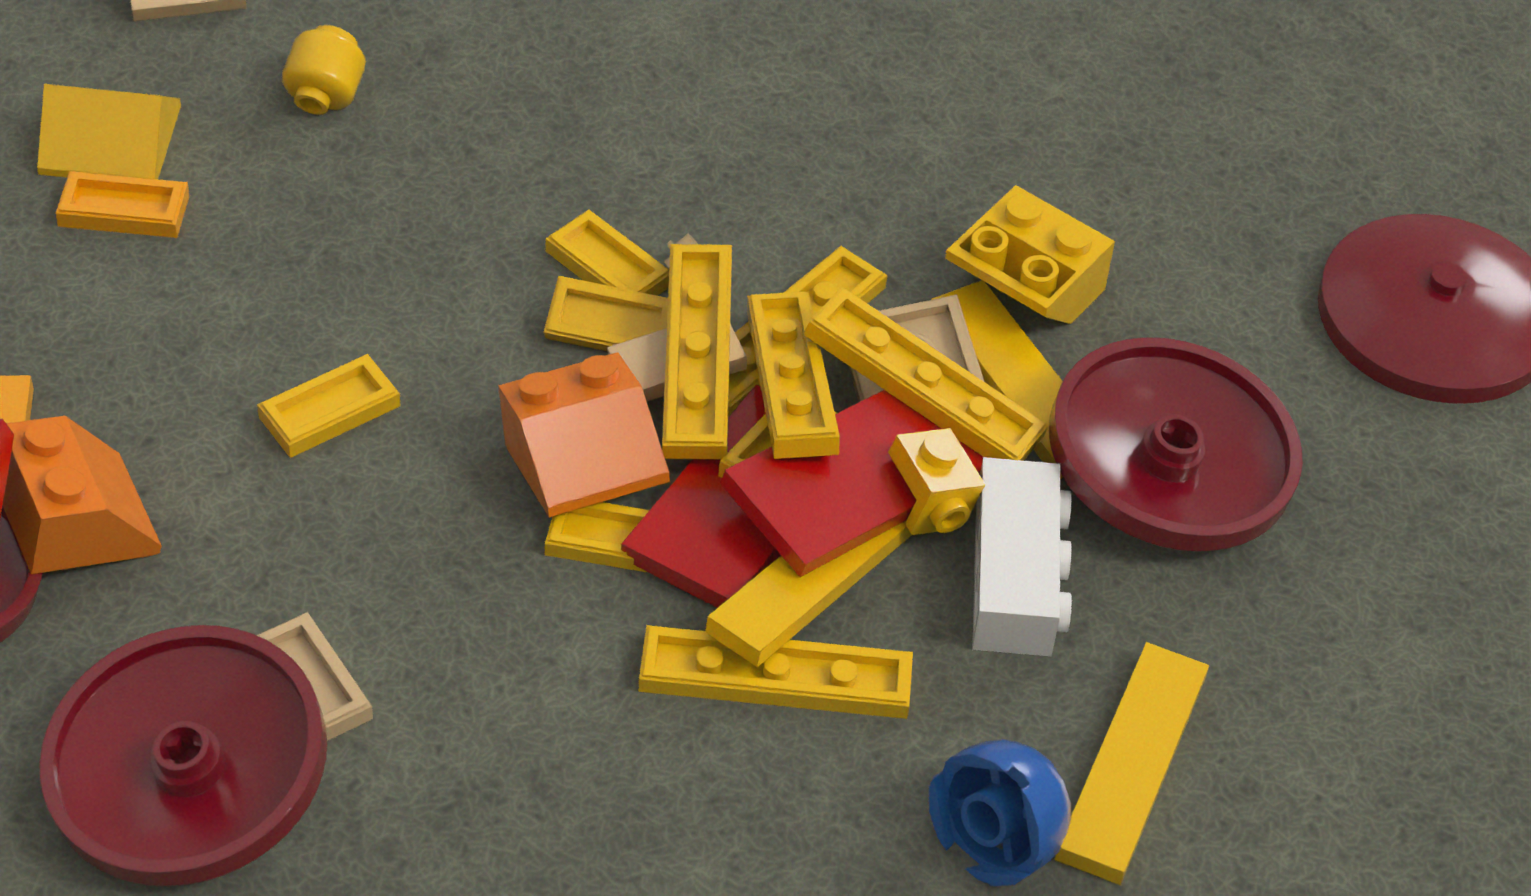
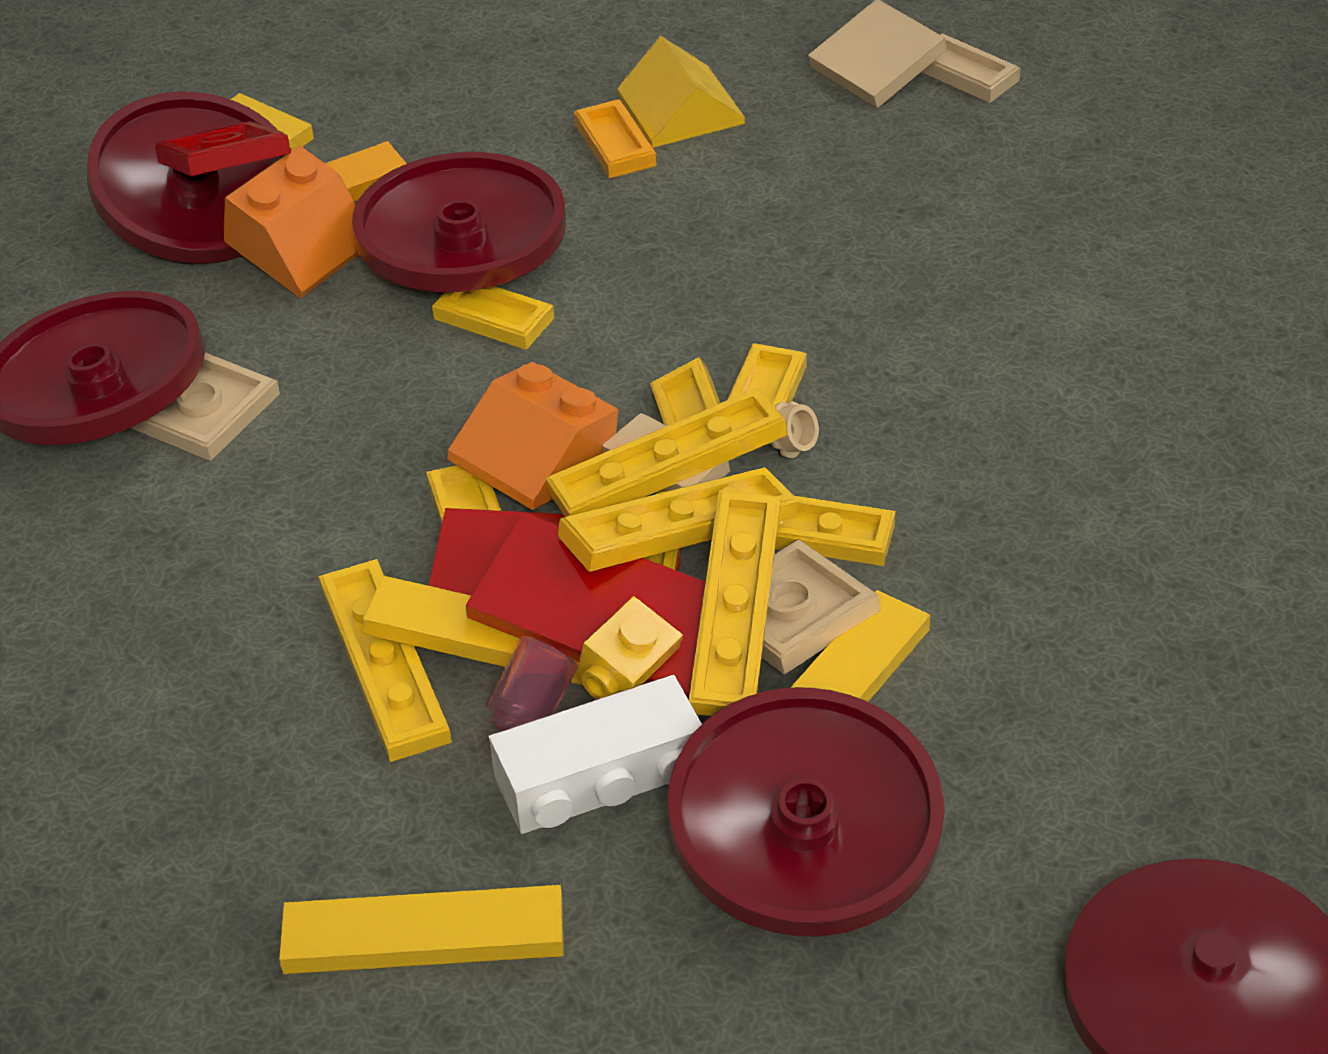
camera: 70 degrees right, 5 degrees down
(194, 364) = (459, 221): none -> dark red dish
(323, 69) = (825, 159): yellow head -> none
(919, 567) = (530, 684): none -> clear pink brick
(996, 797) = (289, 840): blue cylinder -> none
(1036, 255) = (959, 629): yellow slope -> none

